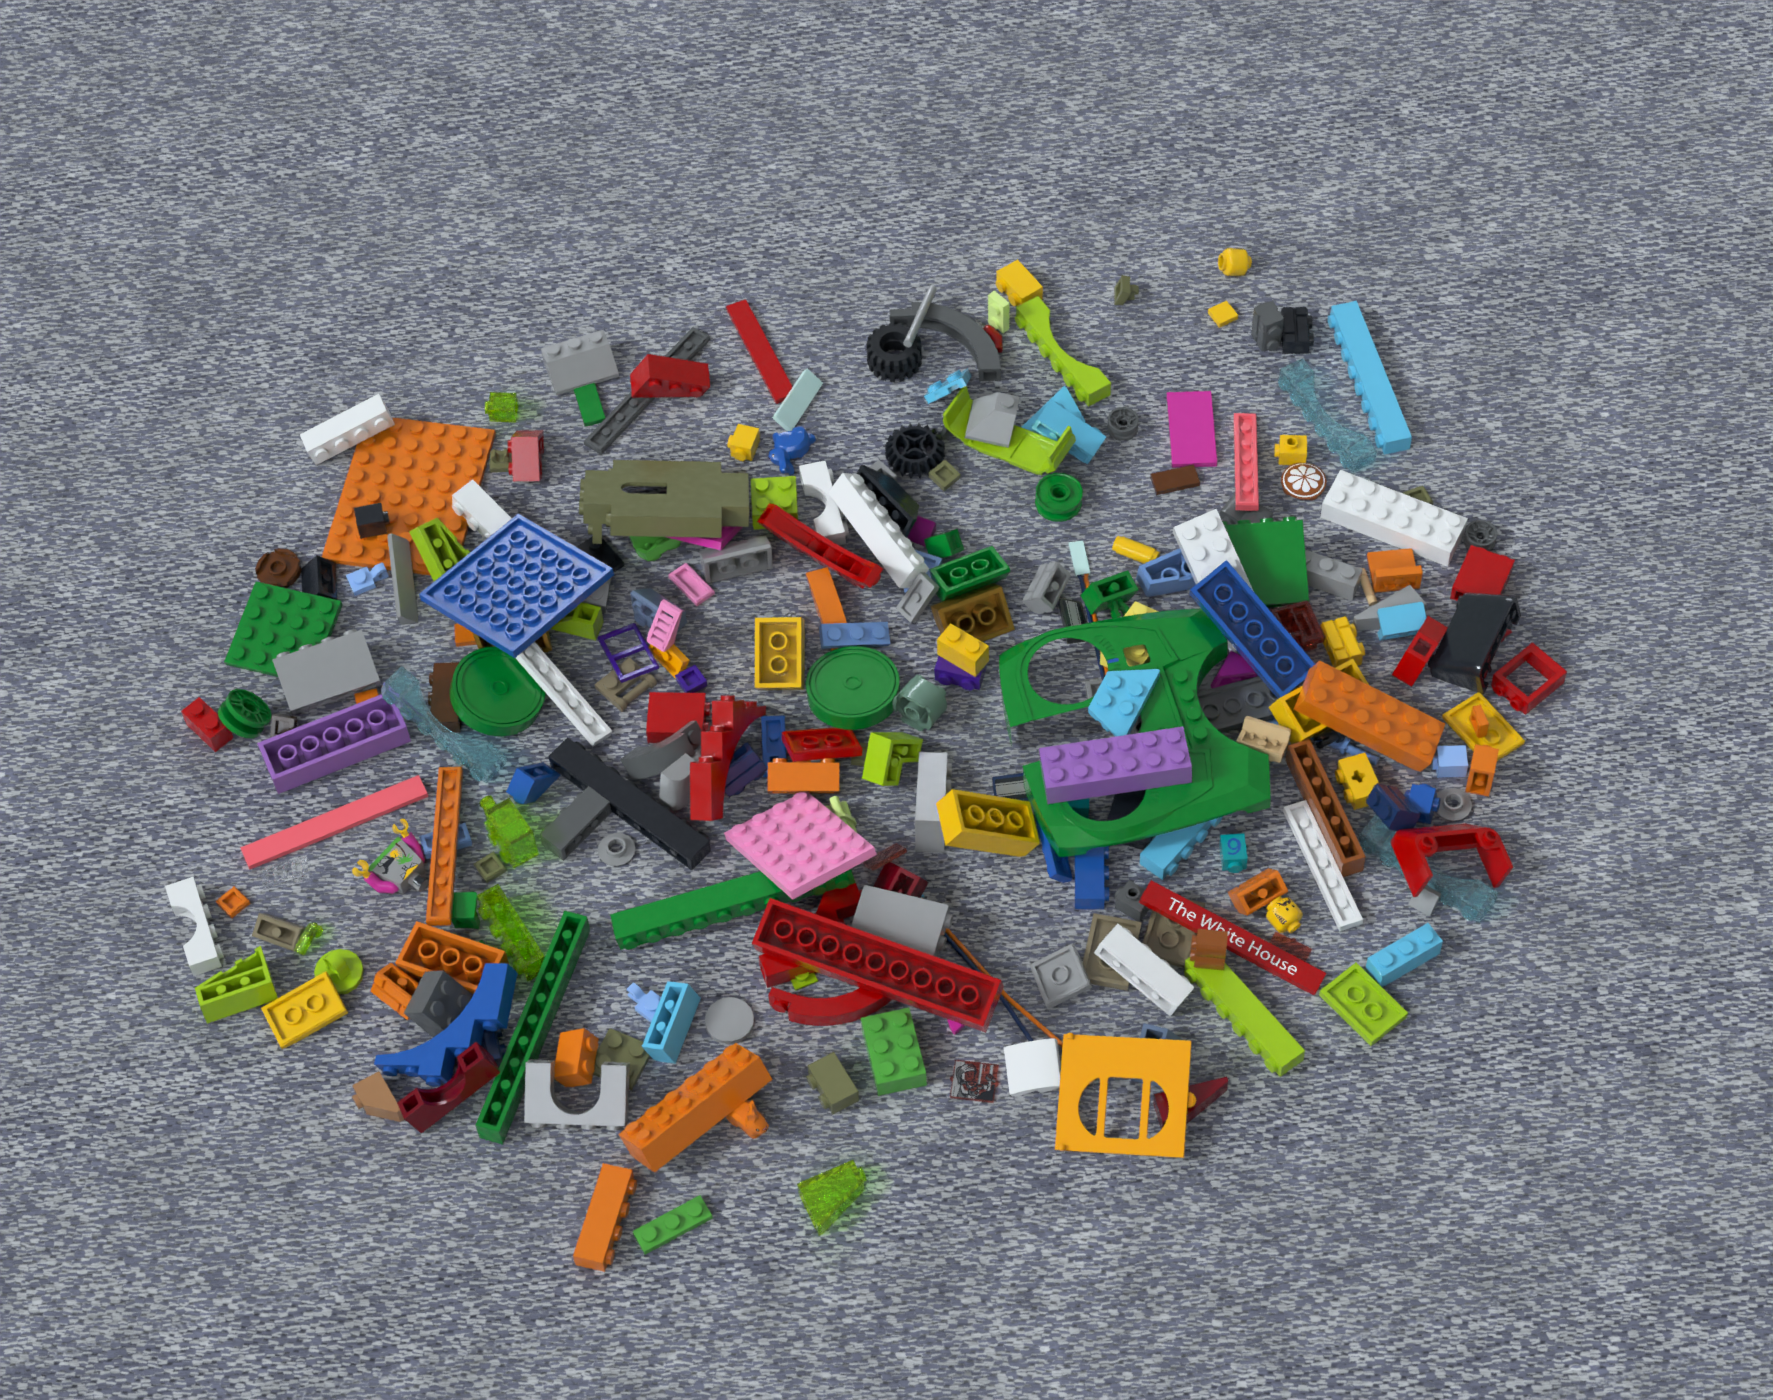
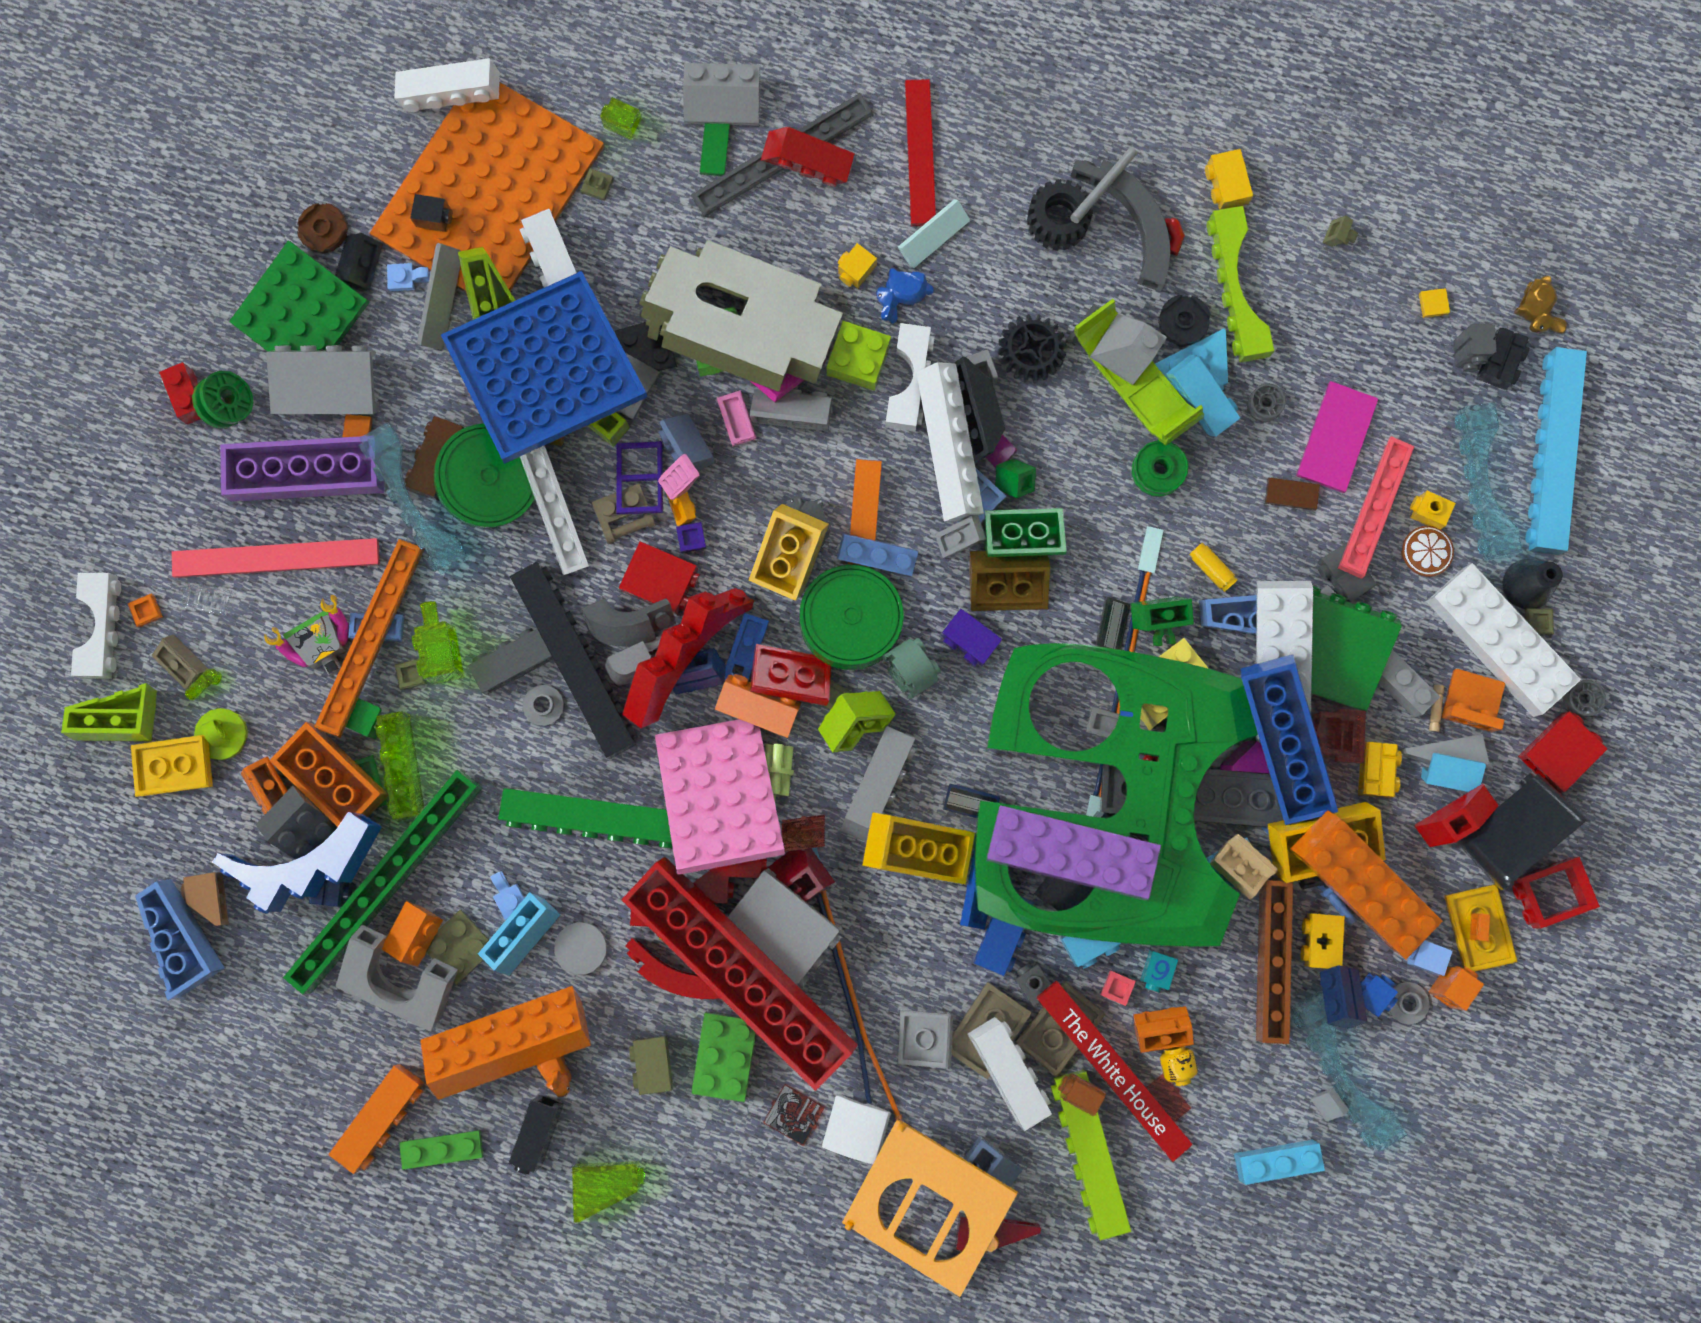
camera: 20 degrees right, 25 degrees up
(282, 723) = (259, 427): tile -> none
(370, 1143) = (177, 939): none -> medium blue wedge
(427, 1106) = (297, 920): dark red arch -> none
(527, 453) = (621, 191): brick -> none
(531, 782) = (485, 595): blue slope -> none
(753, 1168) = (535, 1134): none -> black brick
(822, 550) = (886, 443): red arch -> none
(944, 475) = (1050, 391): olive plate -> none
(954, 381) = (1099, 286): medium azure wing -> none
(963, 650) = (978, 629): yellow brick -> none
(998, 312) = (1191, 210): yellowish green plate -> none
(1032, 380) = (1185, 306): none -> black plate
(1046, 587) = (1099, 578): light grey brick -> none
(1122, 699) = (1114, 770): medium azure wing -> none
(1205, 879) = (1117, 988): none -> coral plate
(1234, 262) = (1476, 242): yellow head -> none
(1304, 287) = (1538, 303): none -> pearl gold animal
(1323, 865) = (1243, 1021): white plate -> none
(1363, 1004) = (1214, 1195): lime plate -> none
(1397, 467) = (1531, 582): none -> black cone
(1416, 844) = (1351, 1052): red windscreen -> none

